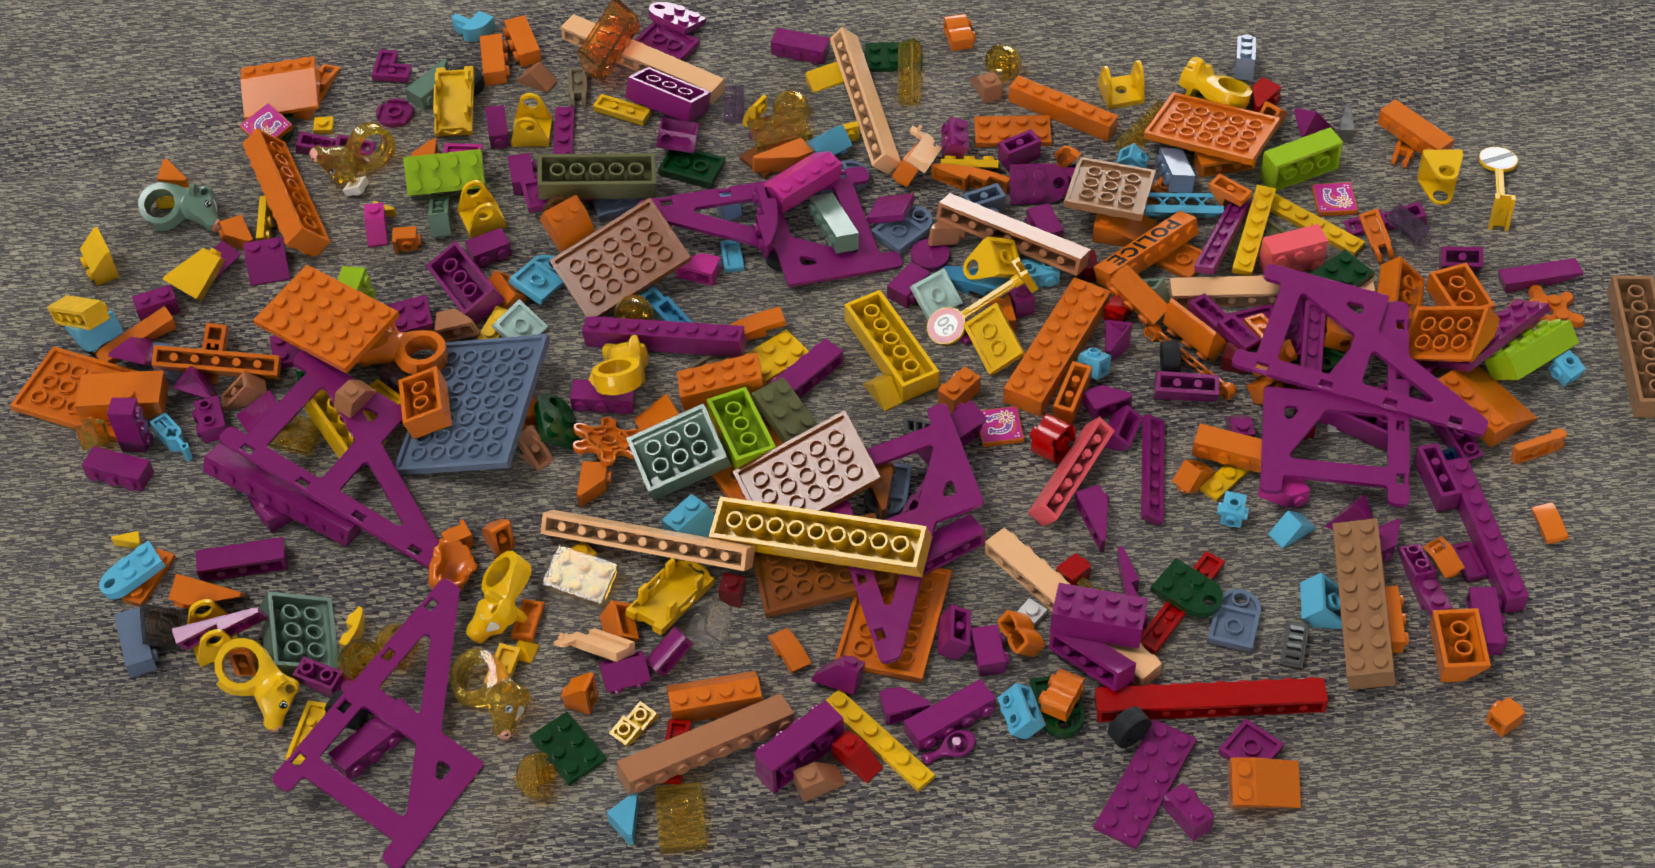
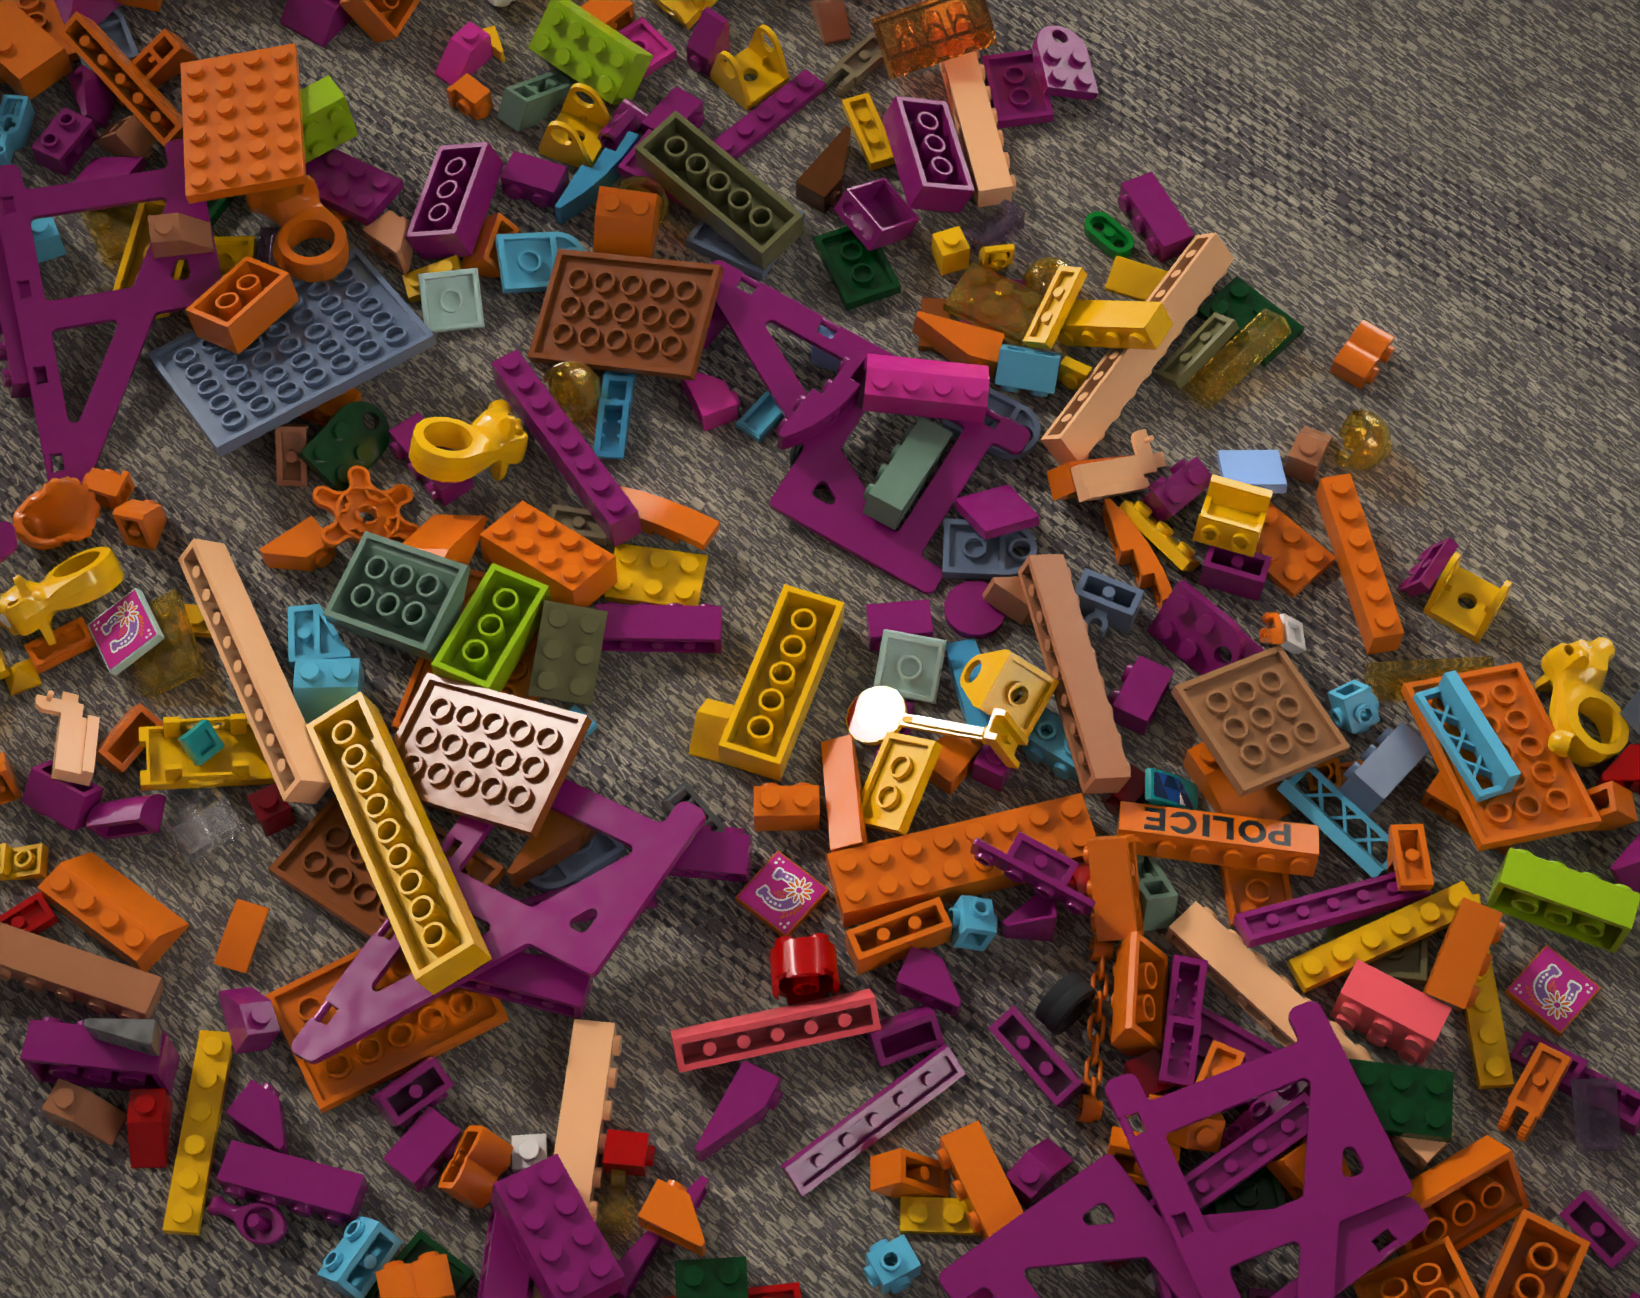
camera: 45 degrees right, 10 degrees up
(501, 193) = (625, 118): none -> magenta piece
(517, 224) = (585, 184): none -> dark azure slope
(558, 582) = (126, 631): none -> tile
(628, 137) = (824, 179): none -> reddish brown slope
(647, 511) = (312, 635): none -> medium azure wing
(665, 588) = (201, 742): none -> teal plate
(728, 126) = (950, 250): none -> yellow brick
(788, 69) = (1111, 235): none -> green plate
(812, 108) = (1055, 307): none -> yellow plate
(814, 709) = (134, 1034): none -> flat silver slope
(846, 95) = (1116, 324): none -> yellow brick
(889, 82) = (1197, 350): none -> olive plate
(975, 109) = (1253, 467): none -> light blue tile
(990, 371) = (843, 793): none -> orange slope
(993, 127) = (1232, 515): none -> yellow panel
(1092, 87) = (1425, 573): none -> magenta plate
(1100, 313) = (1037, 866): none -> magenta bracket
(1103, 248) = (1170, 790): none -> slope
(1133, 566) = (672, 1216): none -> orange slope
(1197, 124) = (1478, 737): none -> medium azure fence
(1231, 102) = (1561, 742): none -> yellow hinge
(1295, 201) = (1464, 955): none -> orange brick

